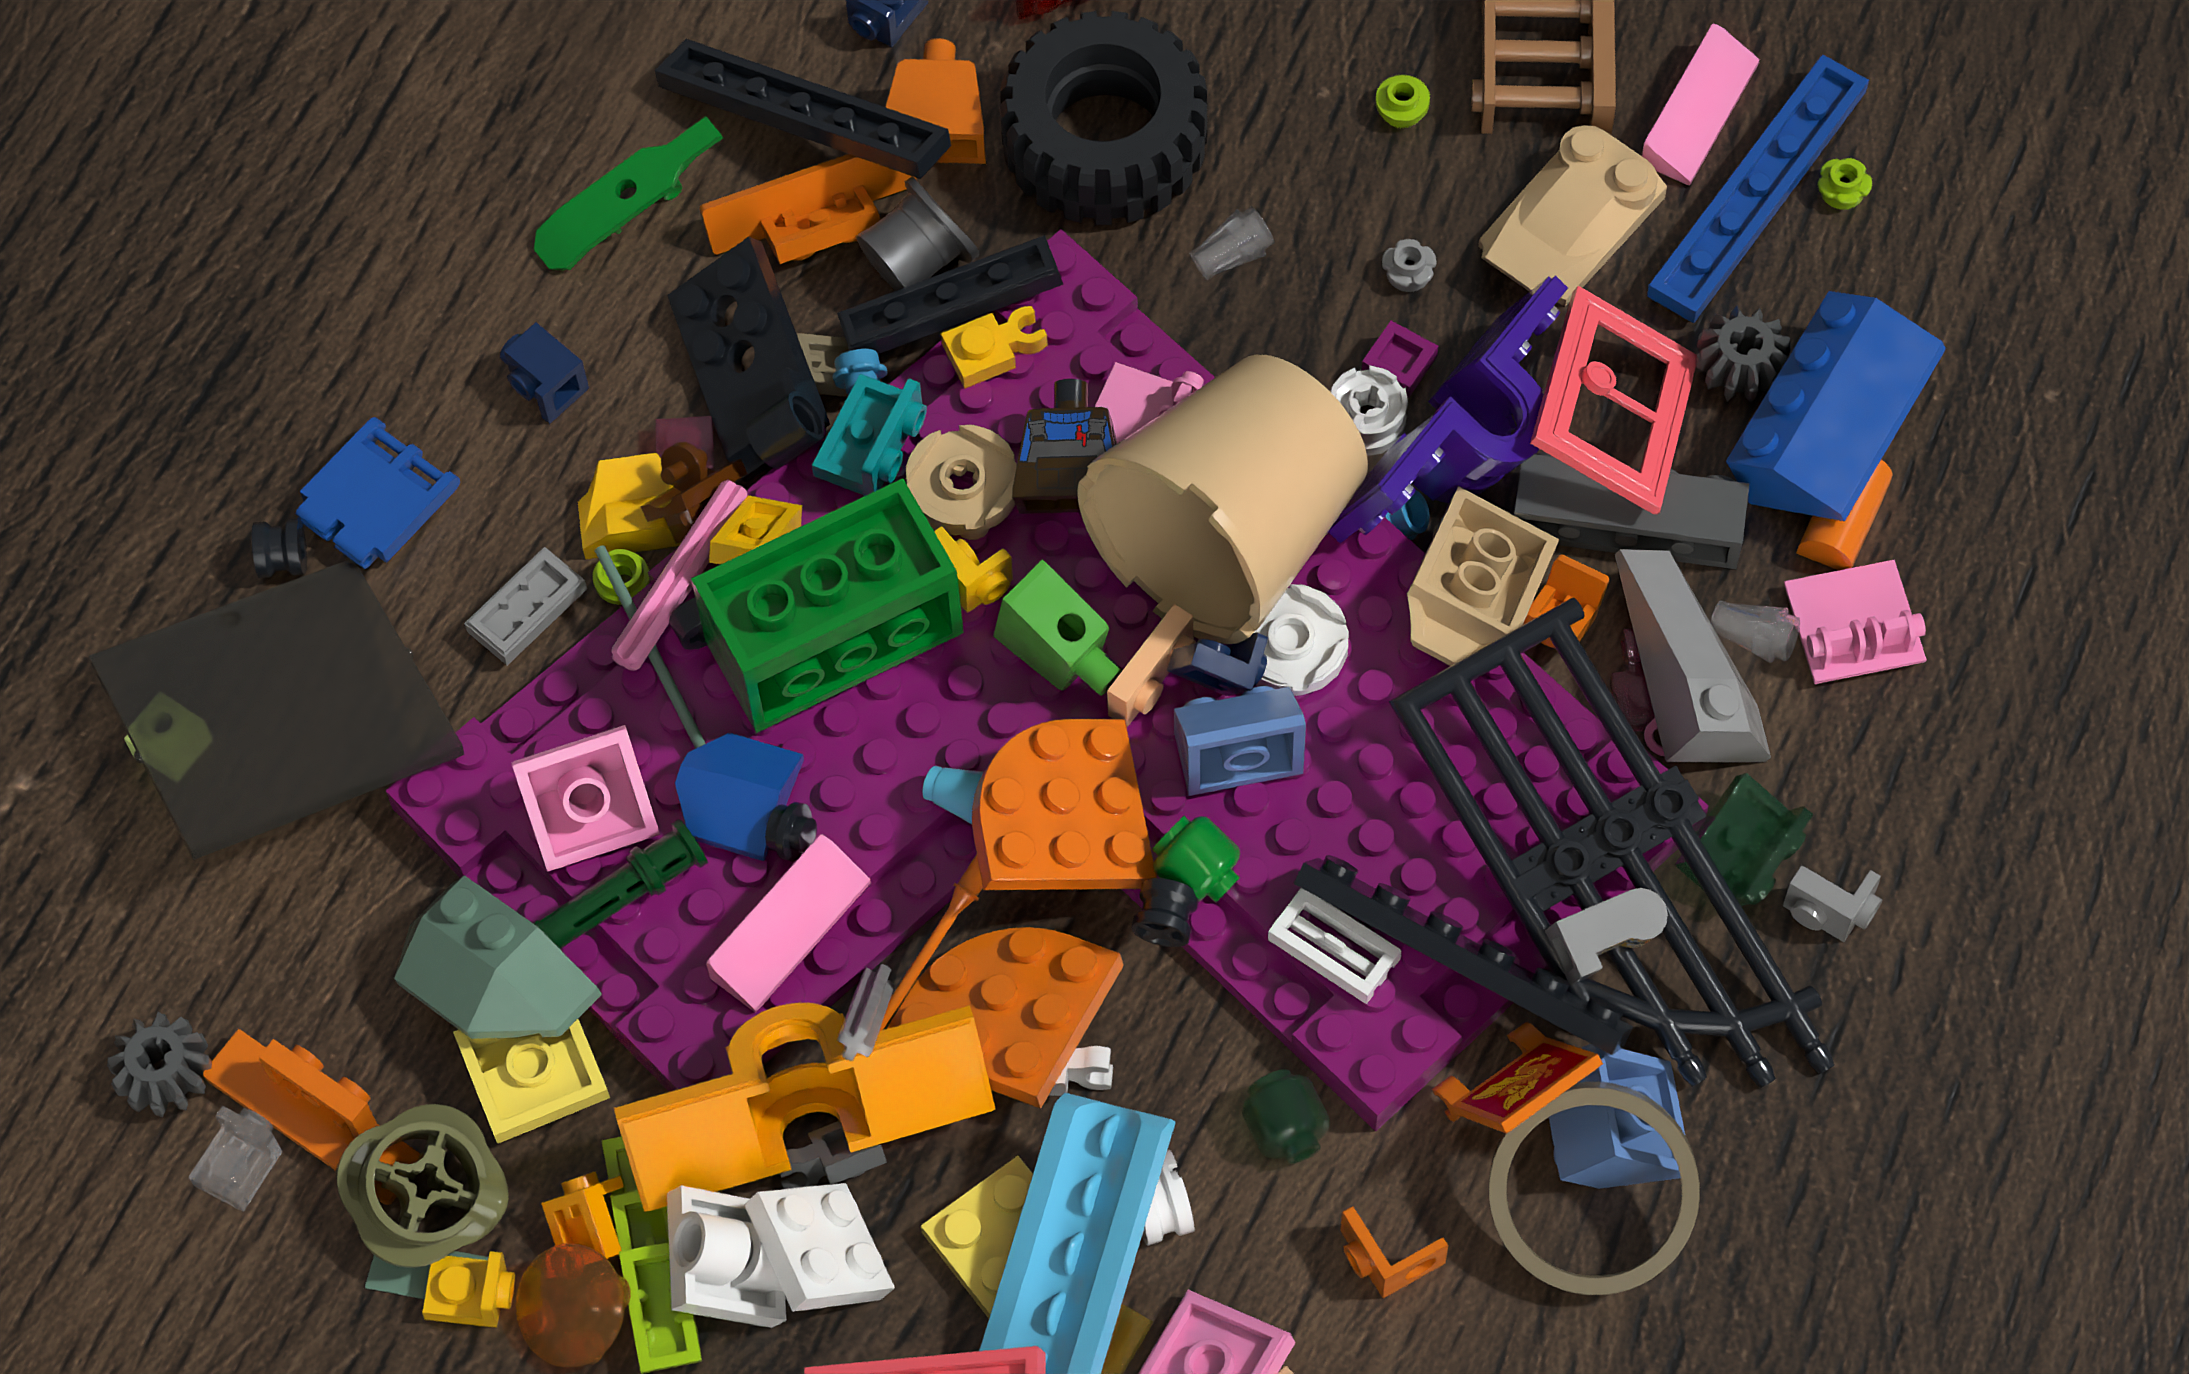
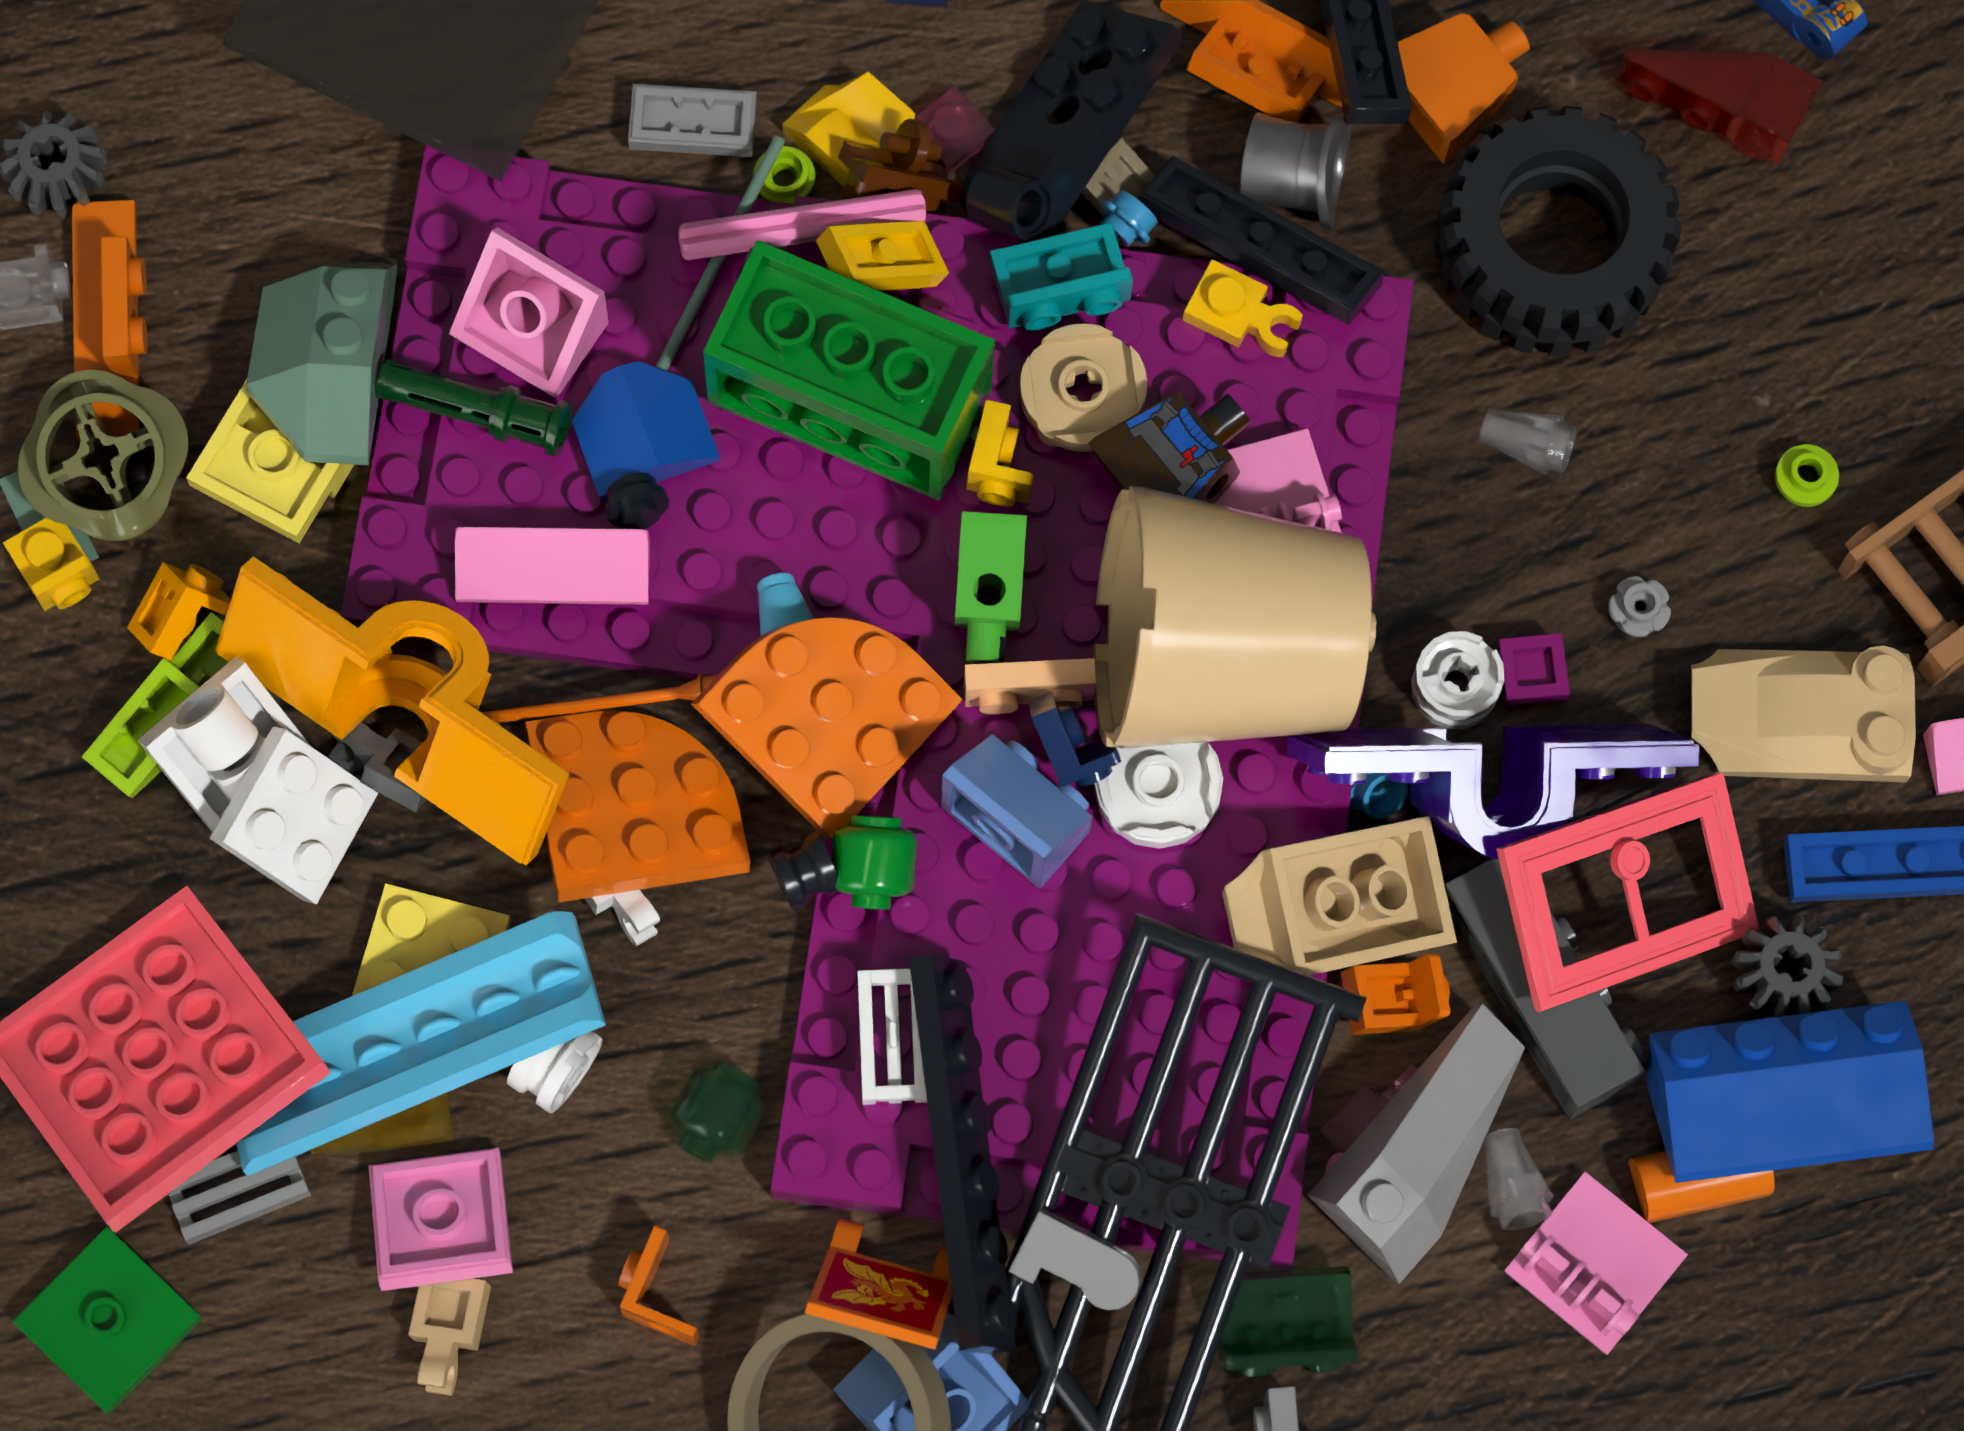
camera: 45 degrees right, 10 degrees up
(571, 1305) = (95, 656): clear orange dish -> none
(866, 1012) = (502, 693): light grey axle -> none

